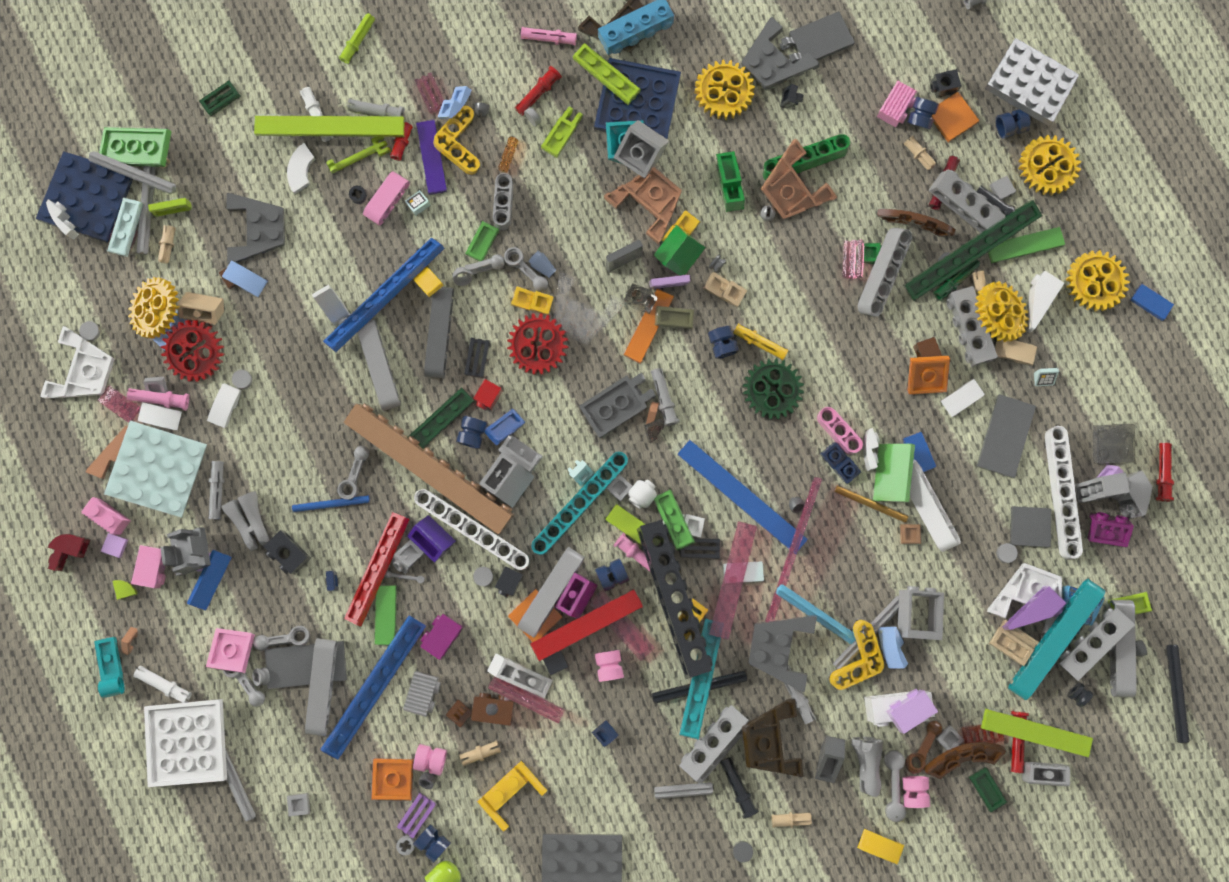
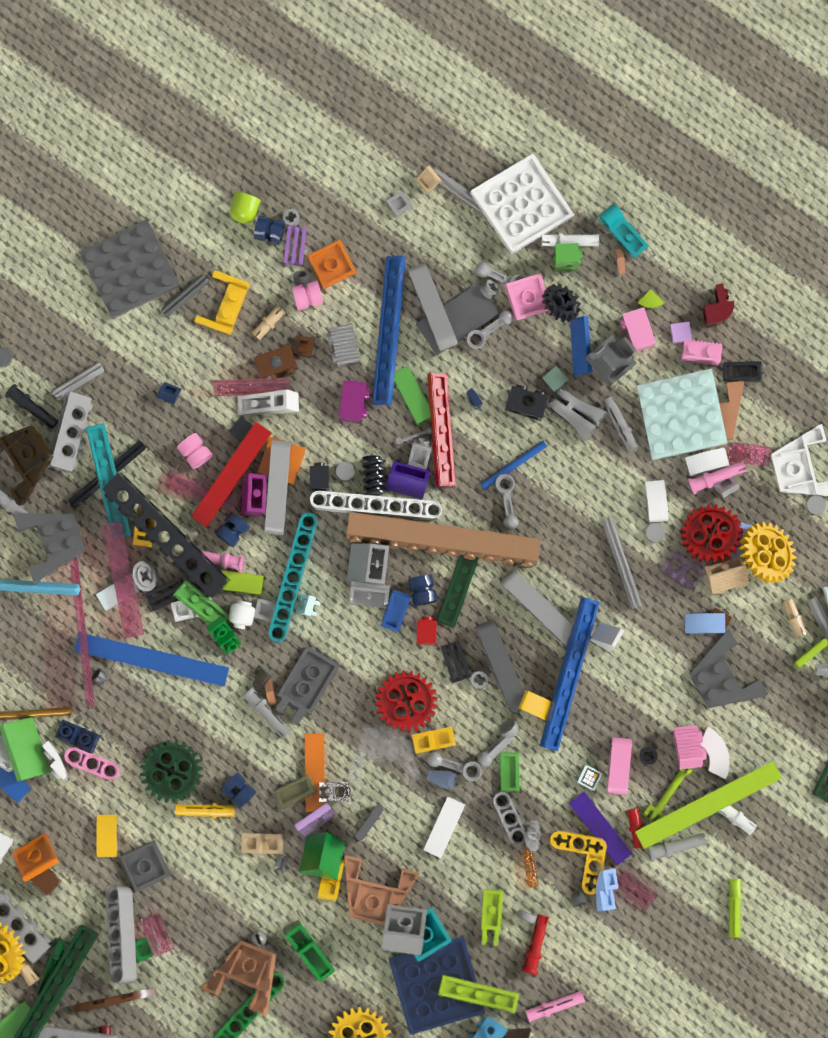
camera: 150 degrees right, 0 degrees up
(67, 472) = (759, 371): none -> black slope
(172, 668) = (567, 257): none -> bright green brick
(203, 628) = (561, 303): none -> black gear
(240, 330) = (680, 575): none -> clear purple brick
(250, 562) = (555, 379): none -> sand green tile
(258, 814) = (428, 179): none -> tan tile
(285, 369) = (621, 562): none -> light grey axle
(318, 181) = (688, 746): none -> bright pink brick
(459, 557) = (373, 475): none -> black piece
(460, 334) = (482, 675): none -> light grey bush
(491, 176) = (533, 835): none -> light grey gear
(543, 821) = (185, 295): none -> dark grey axle
(562, 224) = (444, 827): none -> white tile
(667, 482) = (223, 635): none -> green slope
(707, 572) = (149, 575): none -> light grey gear
(835, 322) = (144, 866): none -> dark grey tile
(856, 363) = (107, 835): none -> yellow slope

